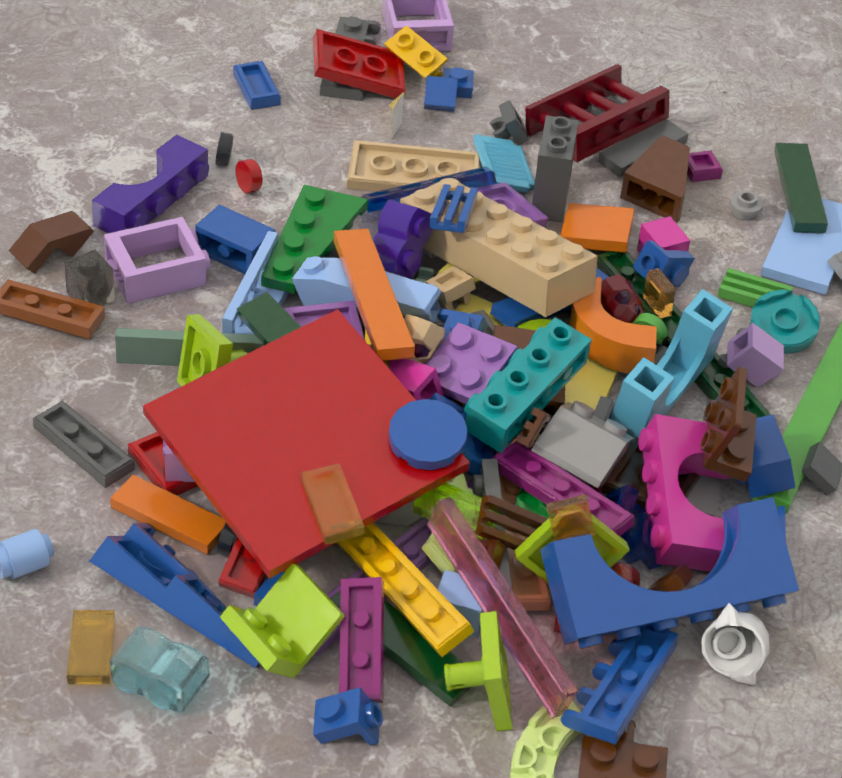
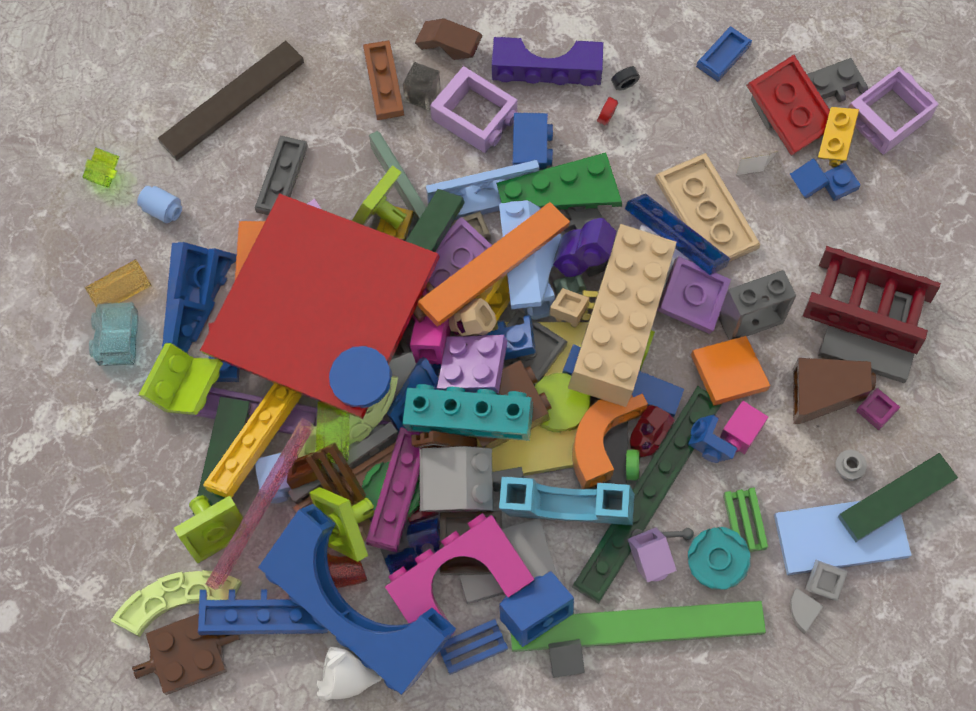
camera: 65 degrees right, 25 degrees up
(332, 503) = (268, 354): tile -> none
(347, 715) = (141, 462): blue bracket -> none
(362, 636) = (195, 435): magenta plate -> none
(456, 197) = (614, 261): blue tile -> none
(506, 161) = (761, 259): medium azure window -> none
(509, 124) = (810, 246): dark grey tile -> none
(570, 517) = (330, 510): clear orange tile -> none
(659, 293) = (669, 452): clear orange tile -> none
(673, 580) = (368, 602): reddish brown tile -> none
(730, 430) = (508, 578): reddish brown bracket -> none

